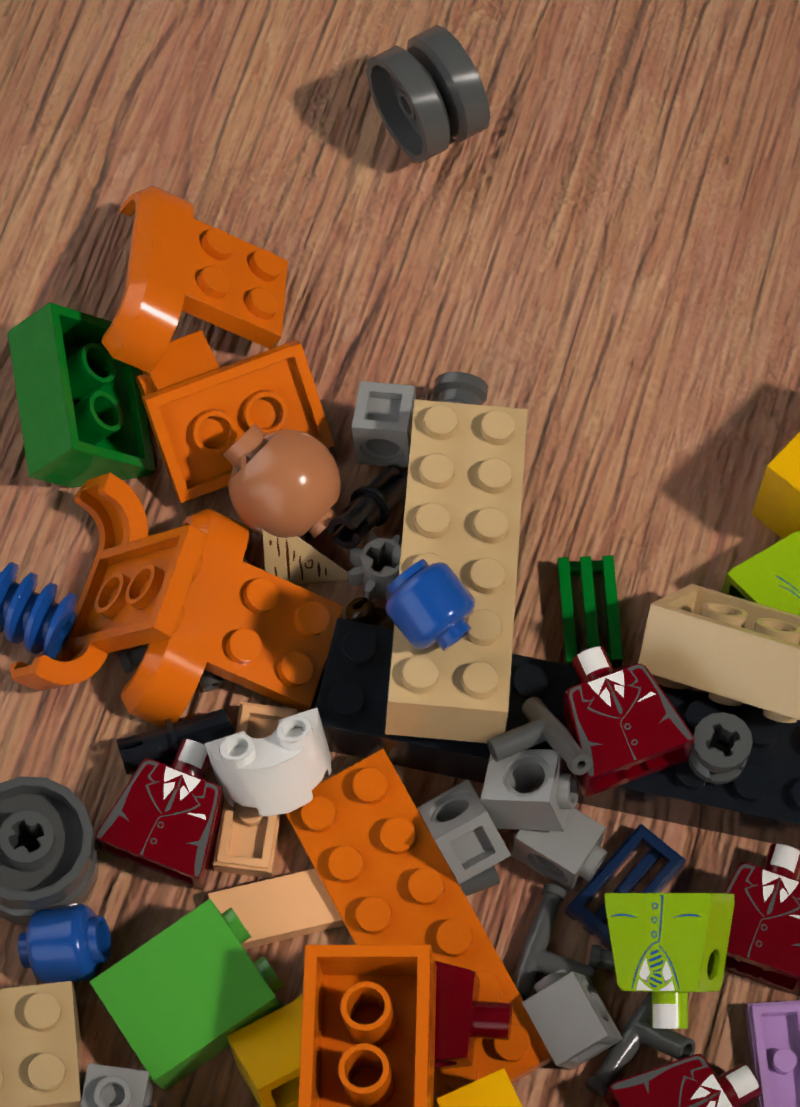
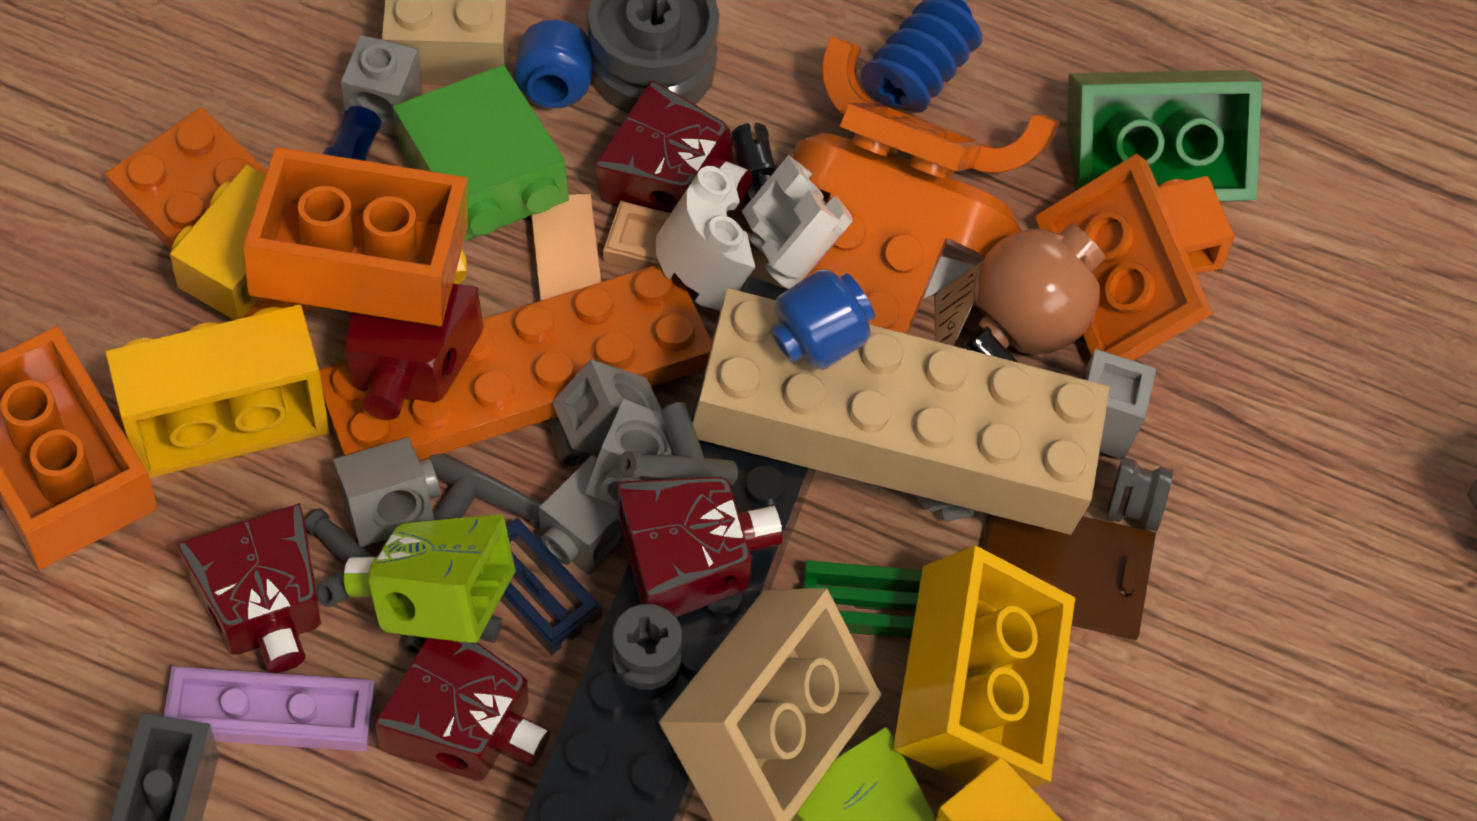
camera: 95 degrees right, 5 degrees down
(191, 269) = (1303, 229): orange piece -> none
(252, 681) = (794, 222): none -> white cylinder
(548, 463) = (1088, 565): none -> reddish brown container
(667, 501) = (984, 669): none -> yellow brick

